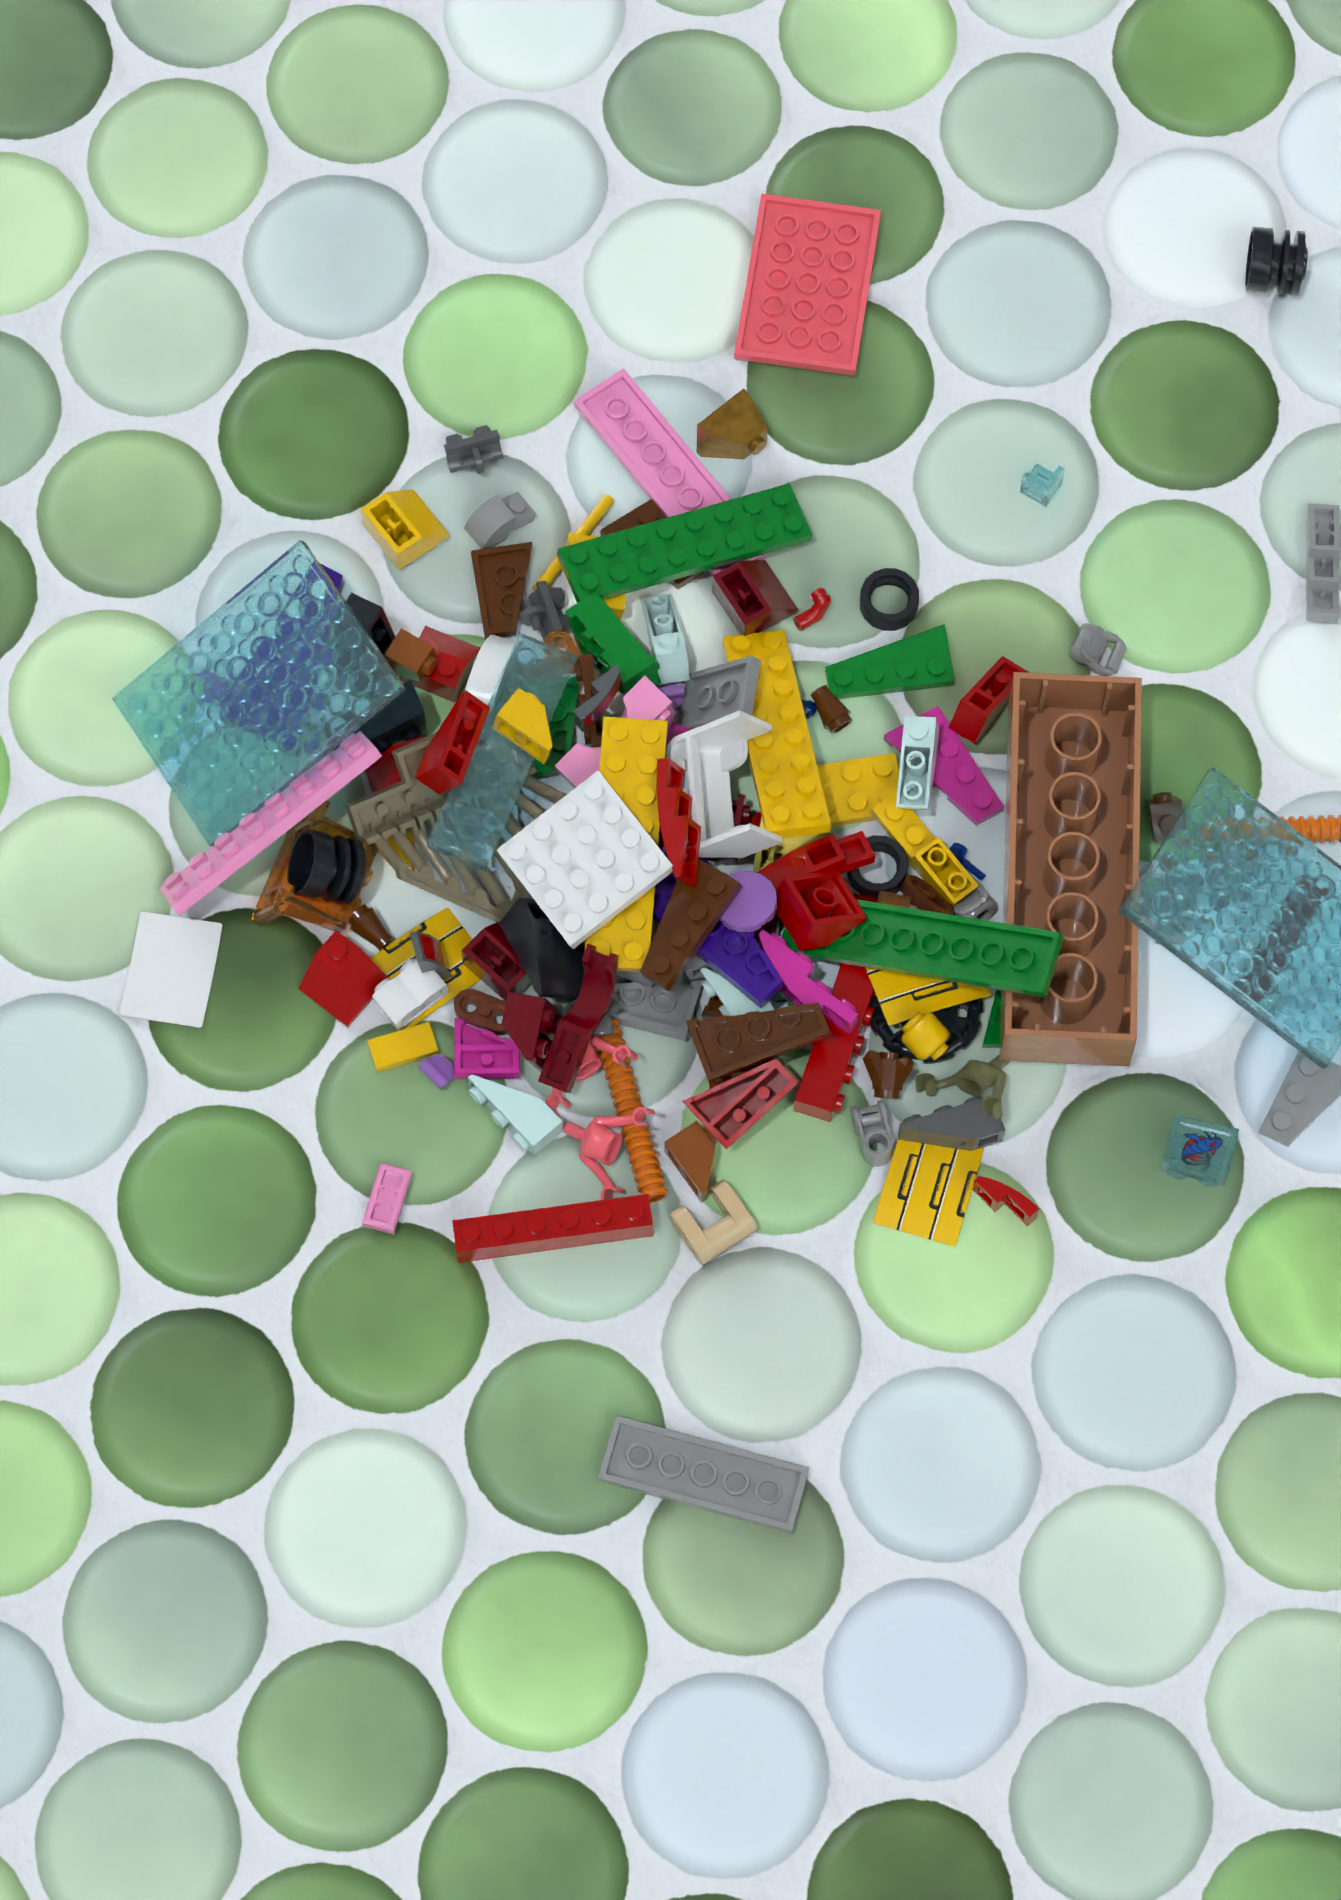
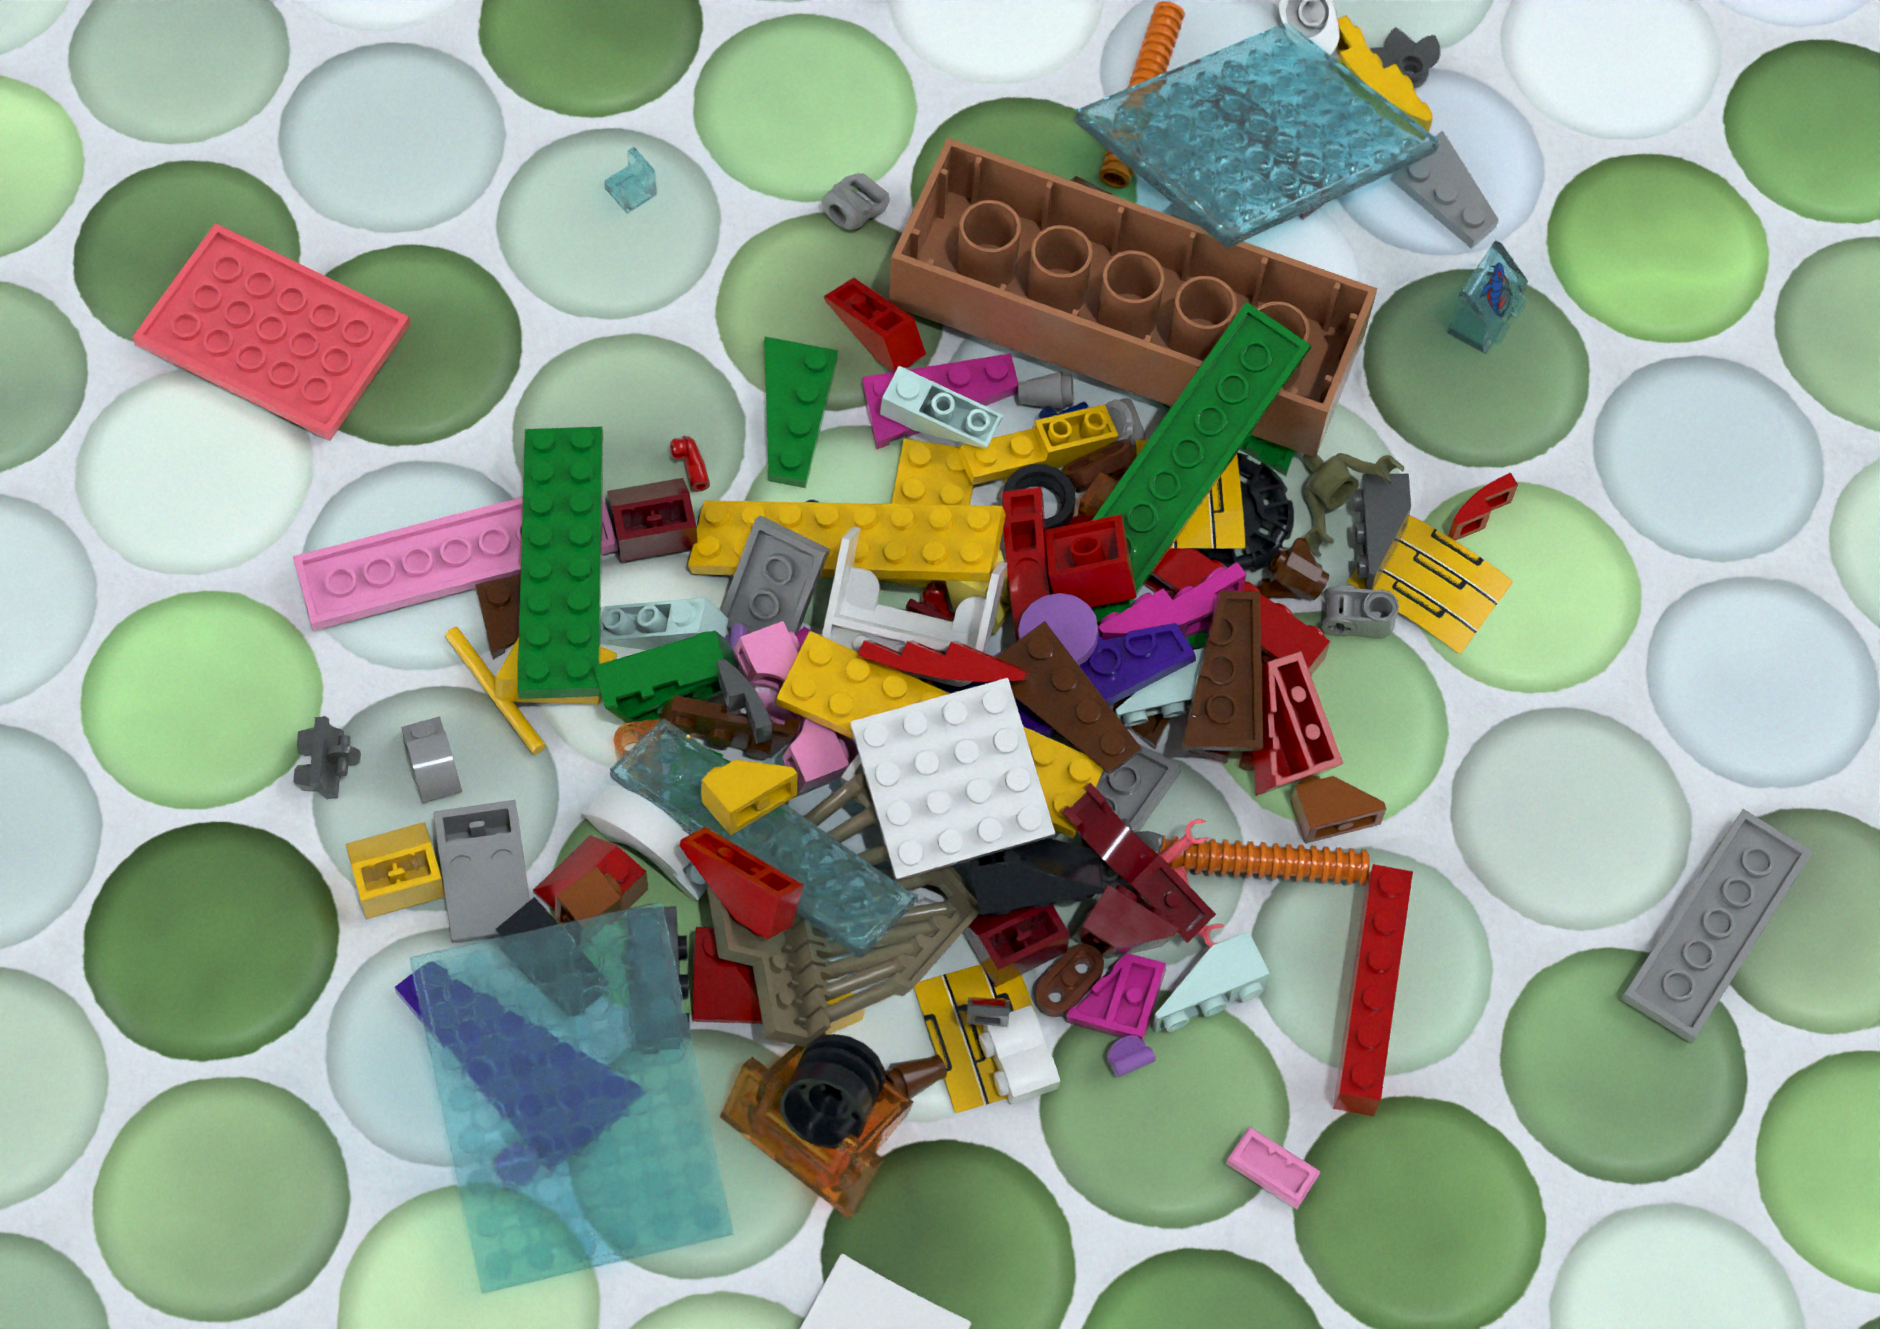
camera: 75 degrees left, 5 degrees down
(269, 823) = (753, 1146): bright pink plate -> none
(341, 979) = (971, 1131): red slope -> none
(402, 1047) = (1080, 1090): yellow tile -> none
(423, 584) = (481, 867): none -> light grey slope
(500, 586) = (539, 790): reddish brown wing -> none
(542, 610) = (578, 745): dark grey hips -> none
(603, 1144) = (1284, 901): coral piece -> none
(720, 1235) = (1438, 821): tan connector -> none
(732, 430) = (433, 462): pearl gold slope -> none
(831, 710) = (827, 484): reddish brown cone -> none
(893, 577) = (711, 355): black tyre -> none
(925, 1036) = (1273, 514): yellow head -> none
(980, 844) = (1048, 390): none -> light grey cone

